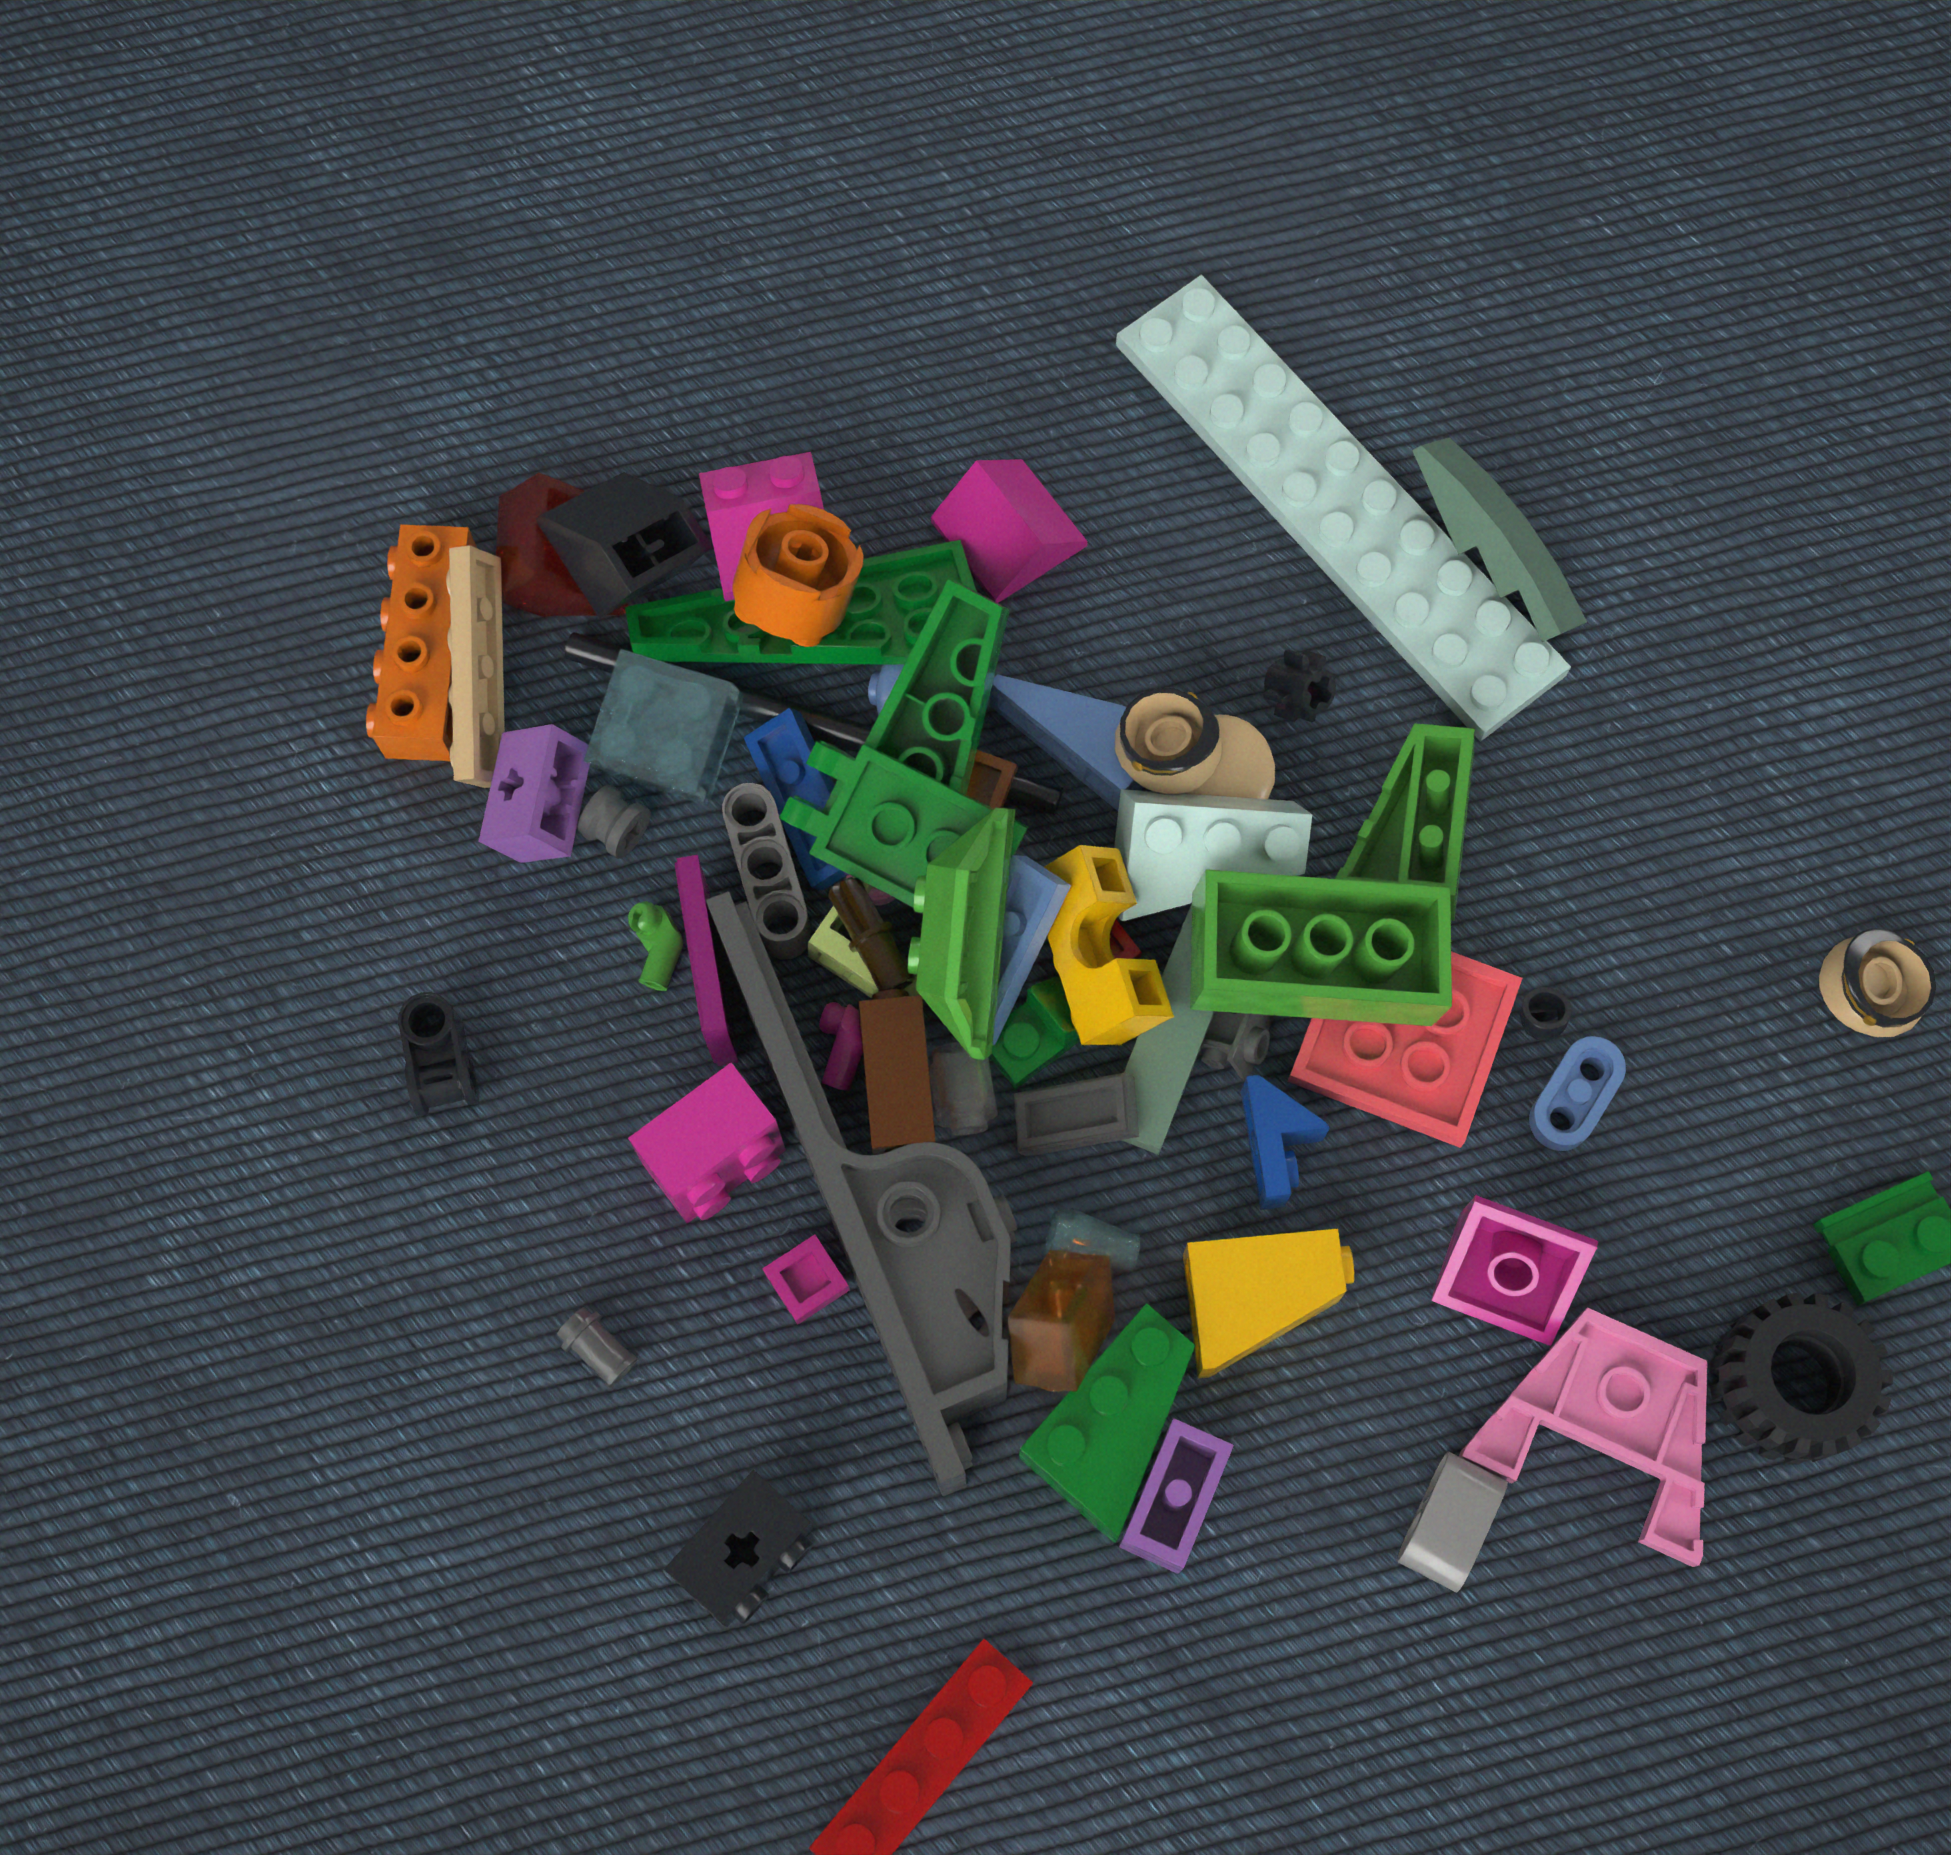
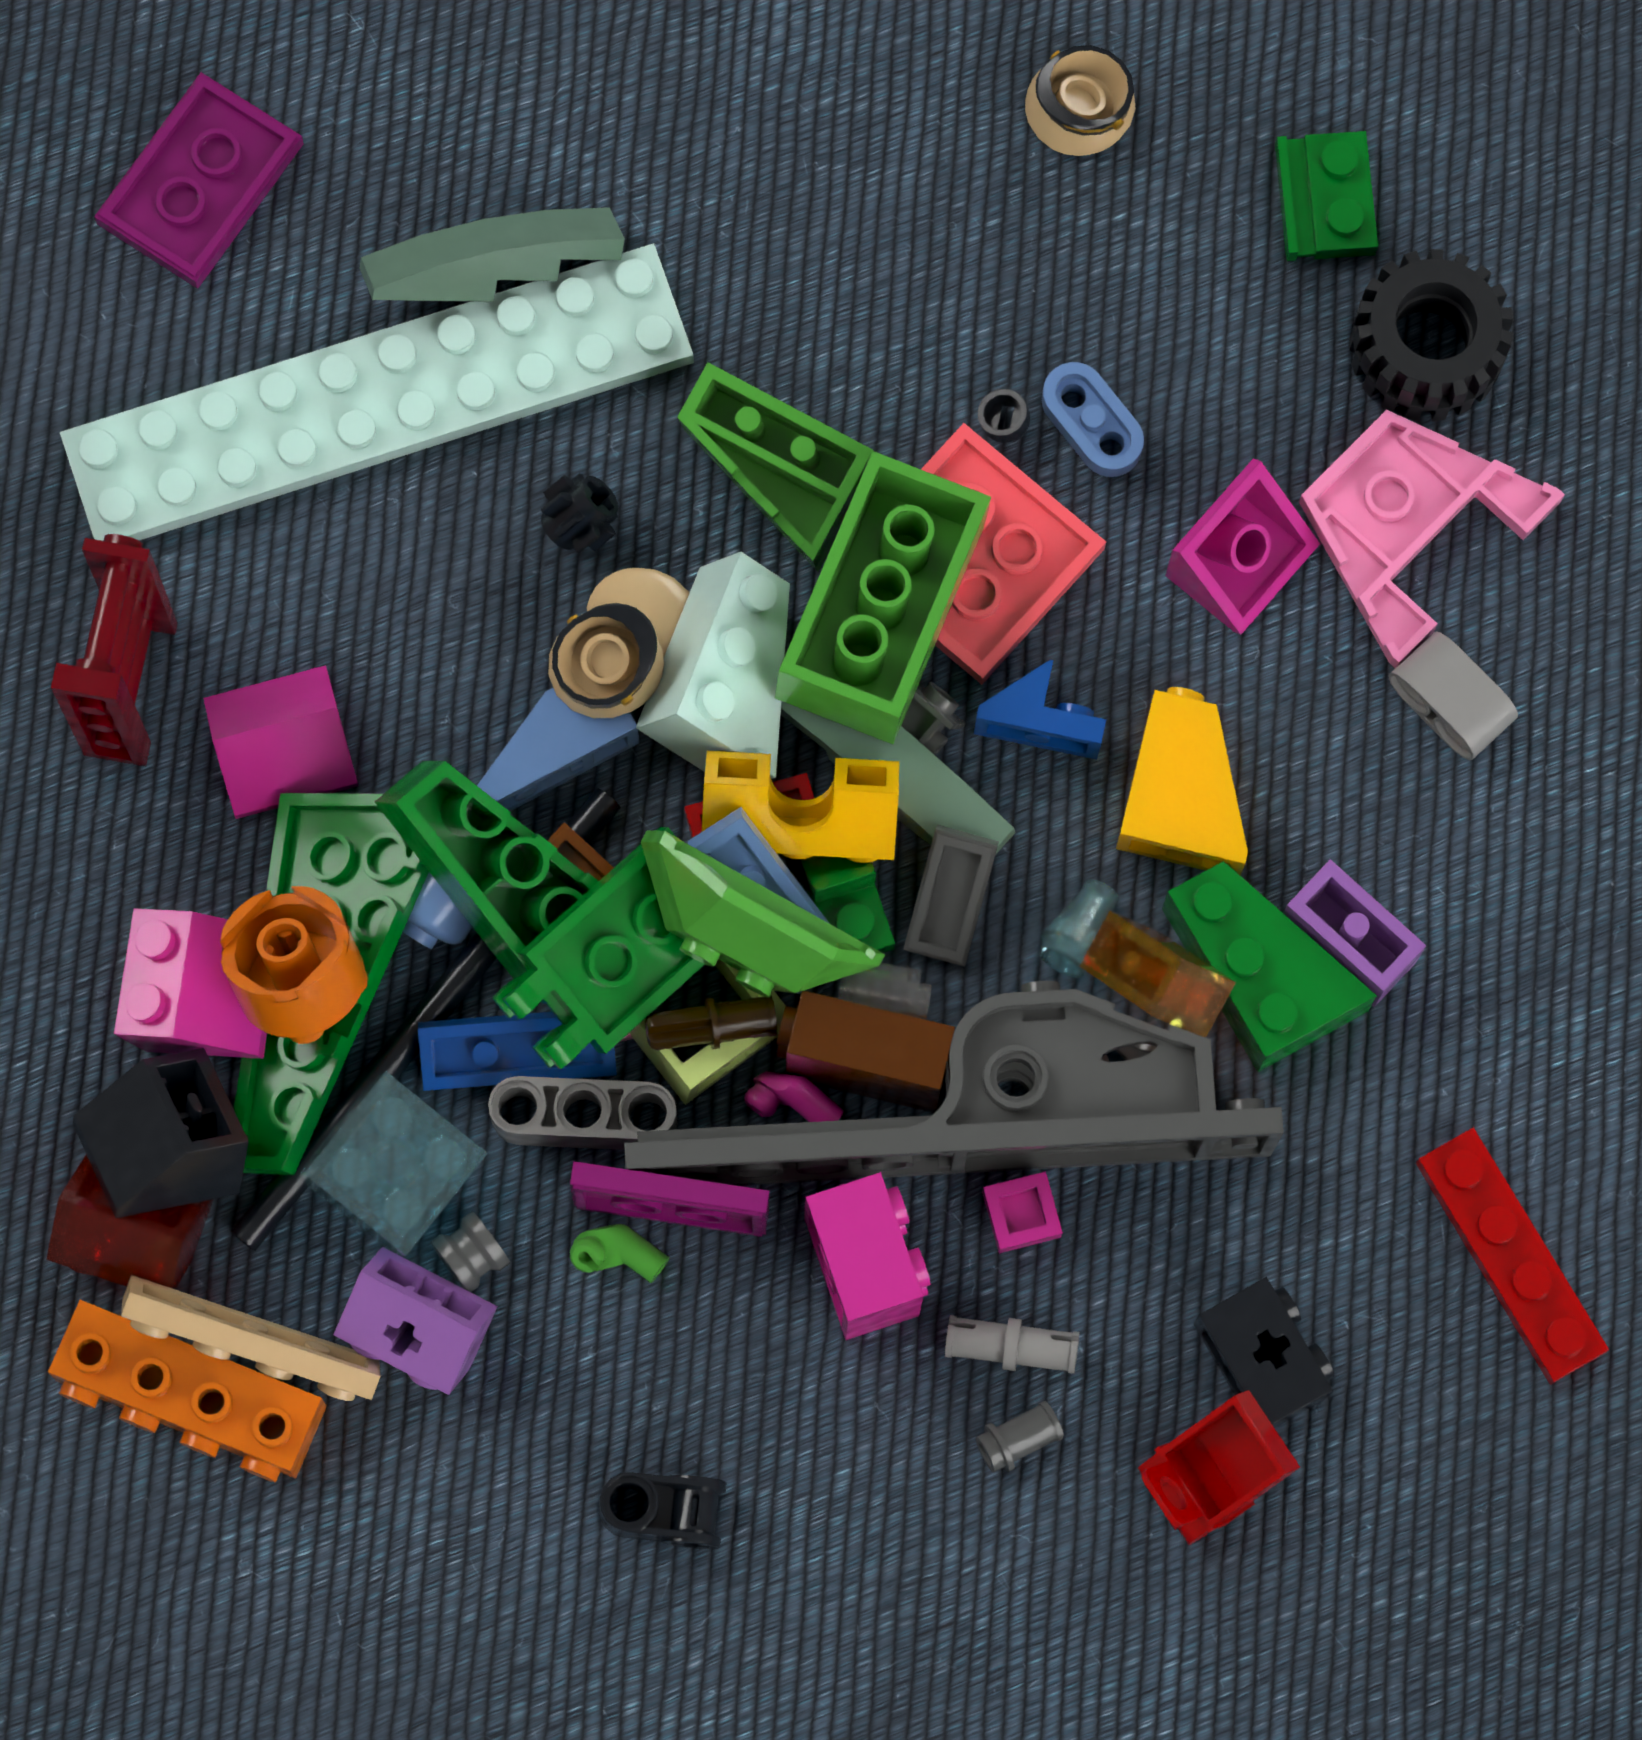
camera: 75 degrees left, 5 degrees up
(612, 1534) = (1217, 1468): none -> red piece
(680, 1312) = (1012, 1344): none -> light grey pin
(963, 339) = (104, 685): none -> dark red fence
(1464, 306) = (199, 180): none -> magenta tile

